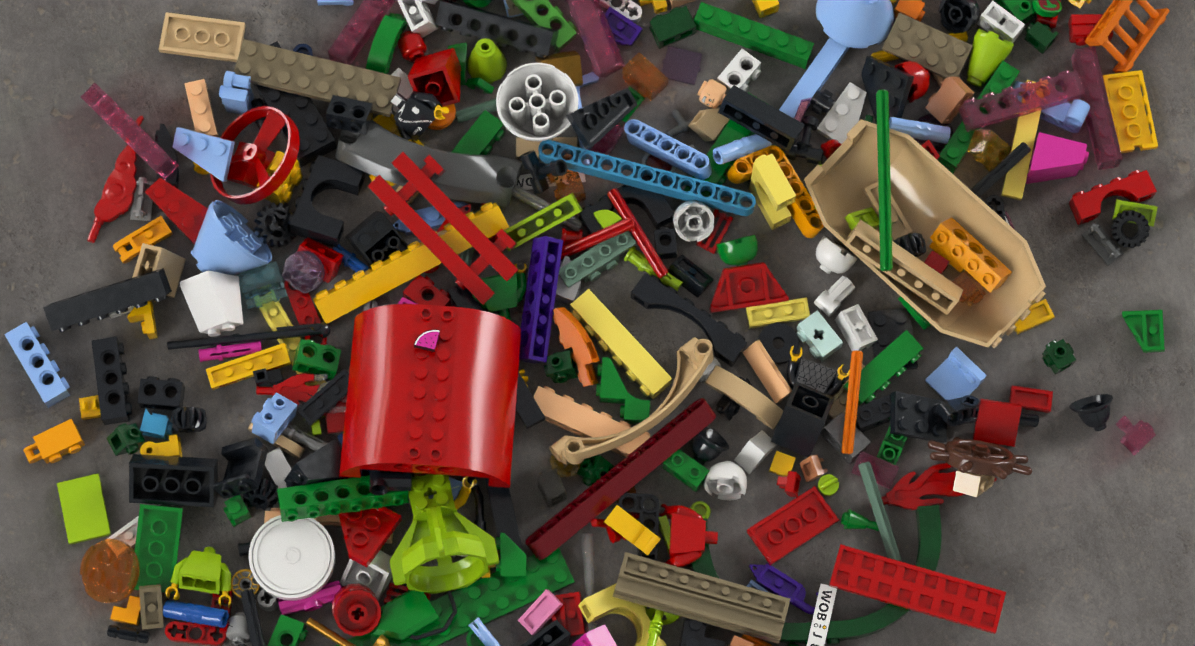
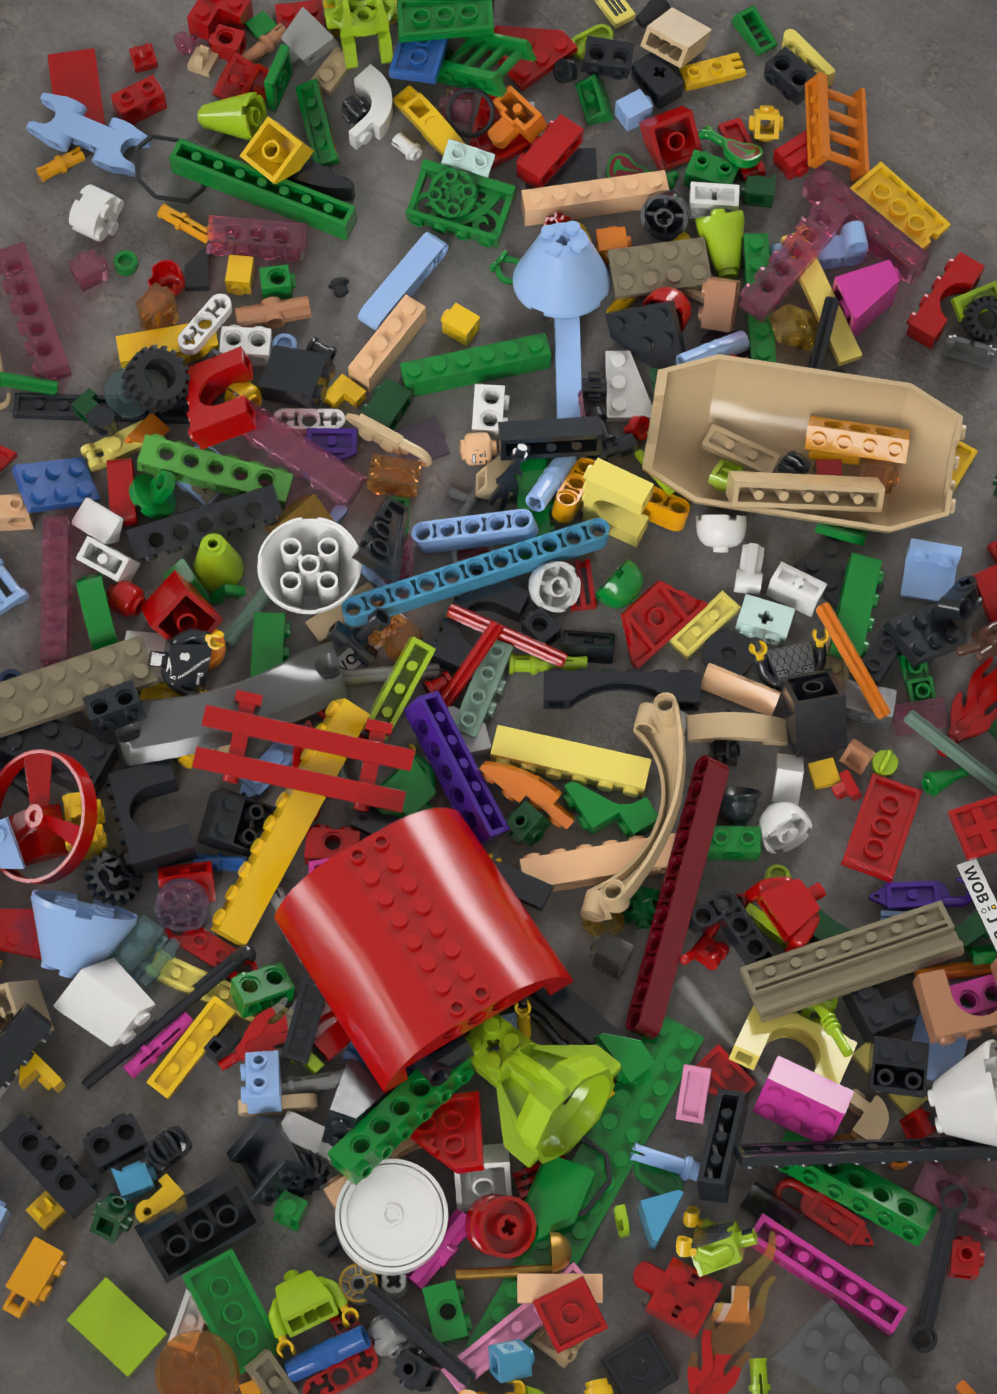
camera: 35 degrees left, 5 degrees down
(427, 340) = (383, 880): dark pink tile -> none
(606, 218) = (464, 640): lime tile -> none
(632, 530) = (729, 939): yellow piece -> none
(657, 50) = (387, 438): none -> tan plate
(711, 129) = (507, 480): none -> black piece
(884, 180) = (728, 414): green axle -> none

